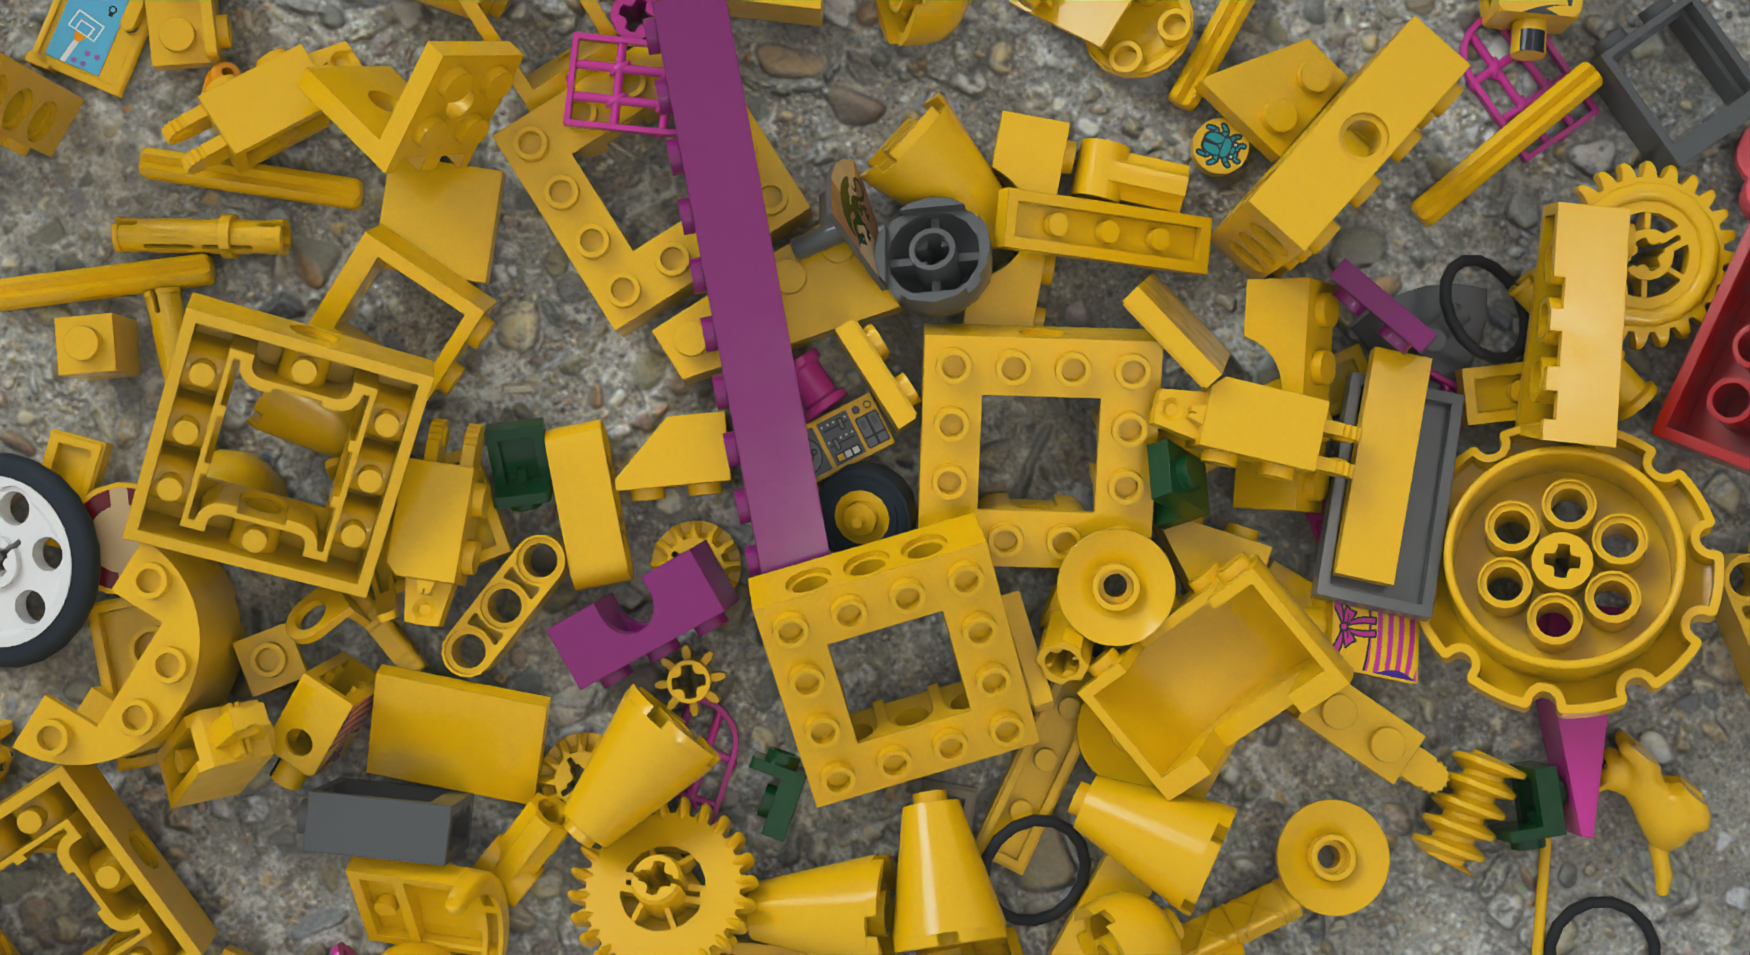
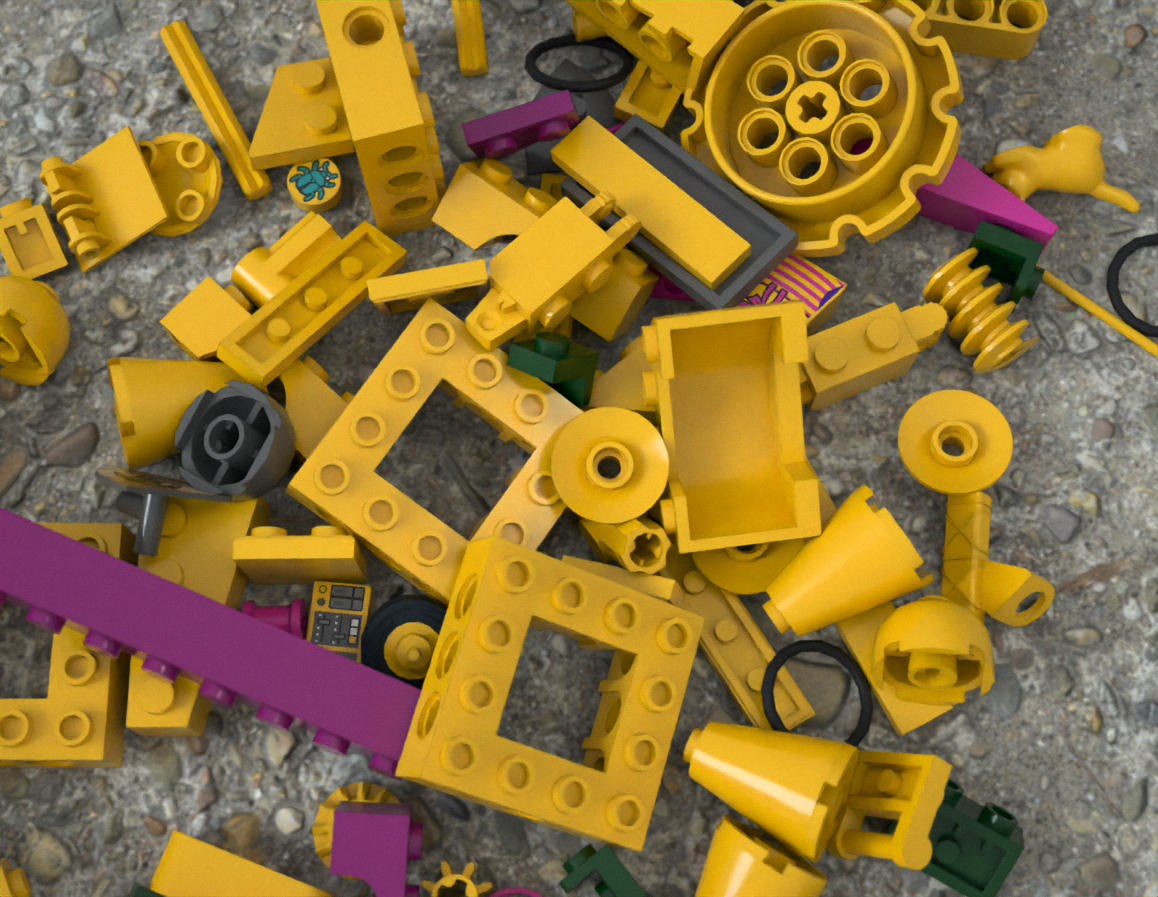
camera: 55 degrees left, 15 degrees down
(680, 454) = (253, 778): yellow slope -> none

